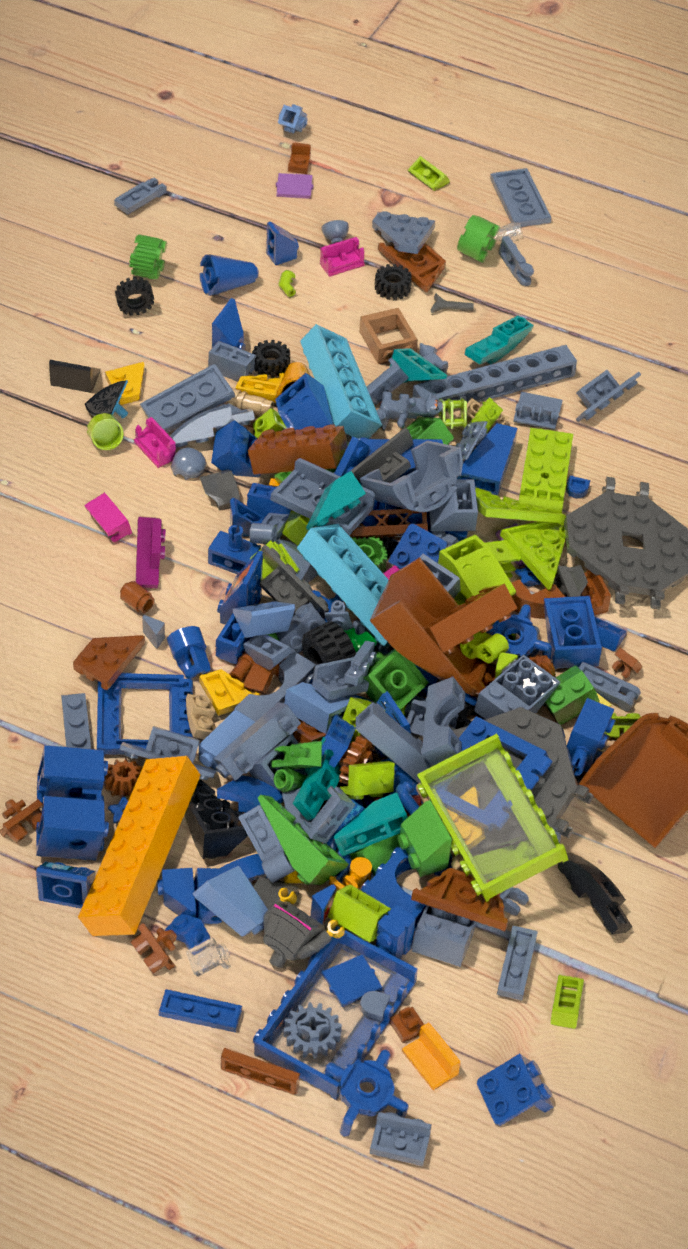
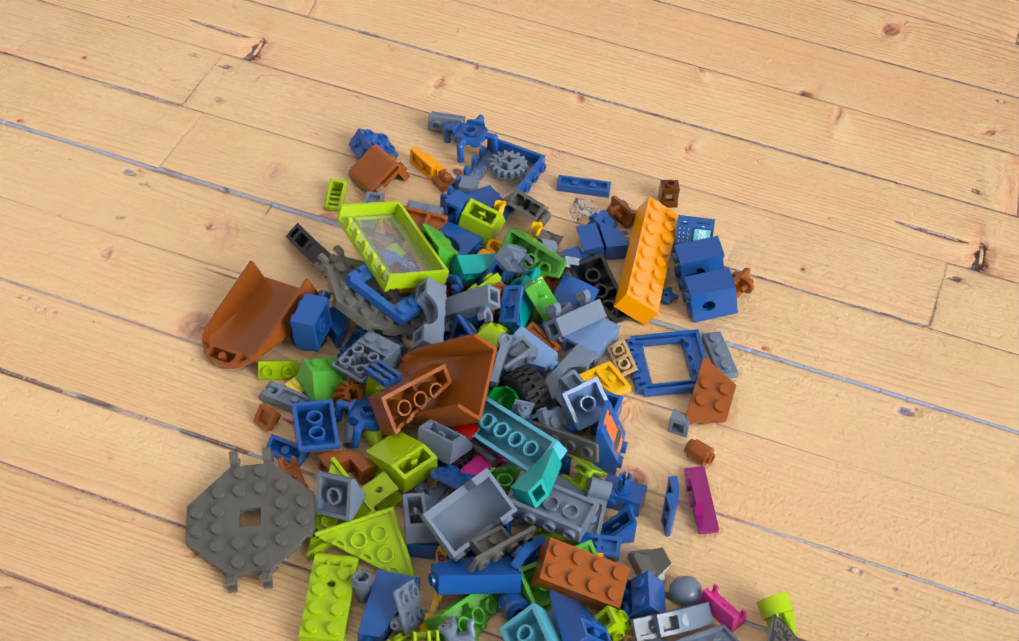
camera: 175 degrees right, 5 degrees down
(78, 969) = (669, 187): none -> reddish brown window
(109, 517) = (745, 525): dark pink hinge -> none
(122, 778) = (672, 312): dark orange gear -> none
(166, 744) = (645, 321): sand blue bracket -> none
(187, 526) = (670, 505): none -> blue slope
(189, 644) = (644, 404): blue piece -> none
(233, 901) = (574, 222): medium blue slope -> none
(260, 1071) = (553, 153): dark orange tile -> none
(322, 904) = (510, 219): blue slope -> none
(503, 1030) = (376, 168): none -> dark orange piece
(506, 637) = (386, 372): none -> blue tile
(514, 469) = (362, 584): none -> sand blue cone
(541, 531) = (338, 496): none -> sand blue slope
(570, 580) = (310, 468): dark grey slope -> none
(577, 487) = (296, 593): blue tile -> none

